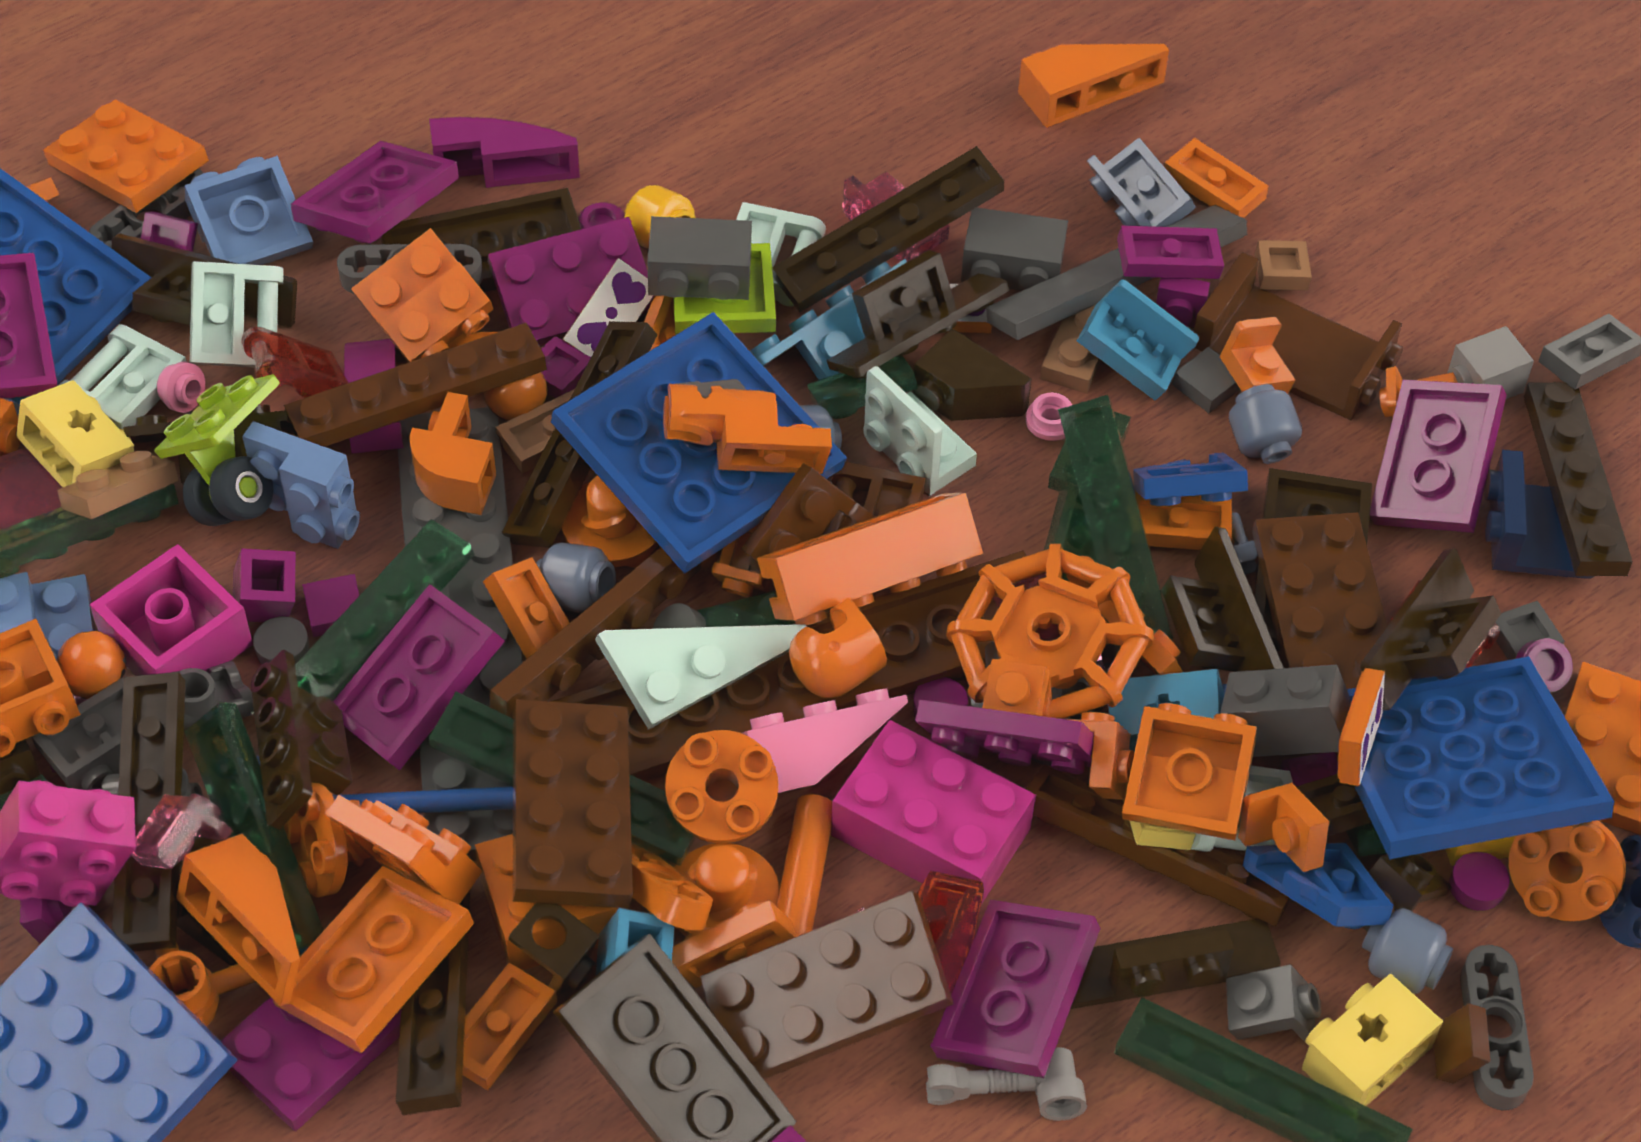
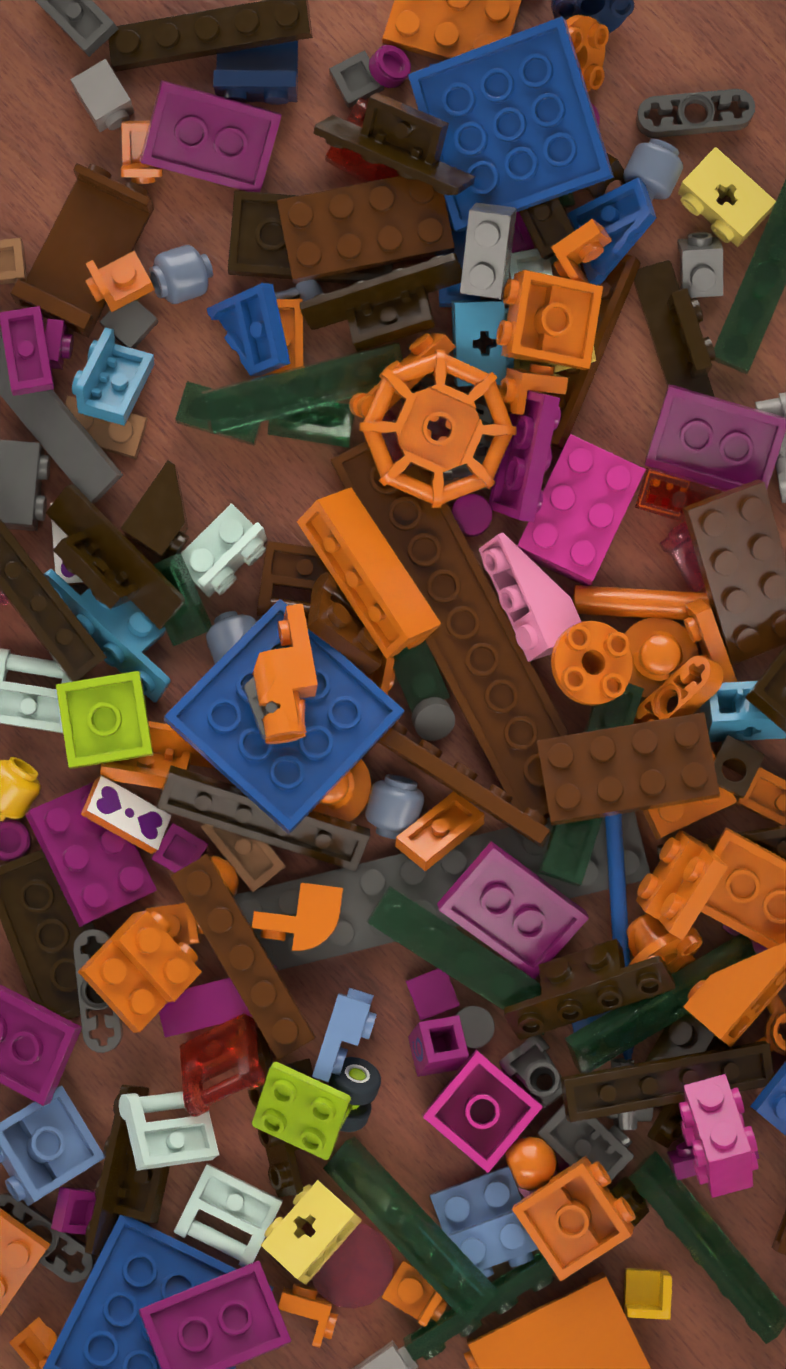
camera: 95 degrees left, 30 degrees up
(111, 488) = (357, 1185): medium nougat plate -> none
(172, 827) = (697, 1051): clear pink bracket -> none
(181, 386) = (234, 1161): bright pink plate -> none
(681, 666) = (483, 705): light aqua wing -> none
(699, 258) = (98, 736): dark grey brick -> none
(839, 659) = (465, 589): orange helmet -> none
(1016, 687) = (501, 449): orange plate -> none
(1046, 408) = (181, 434): bright pink plate -> none
(1360, 726) = (507, 195): orange tile -> none
(1462, 1044) = (719, 133): reddish brown tile -> none

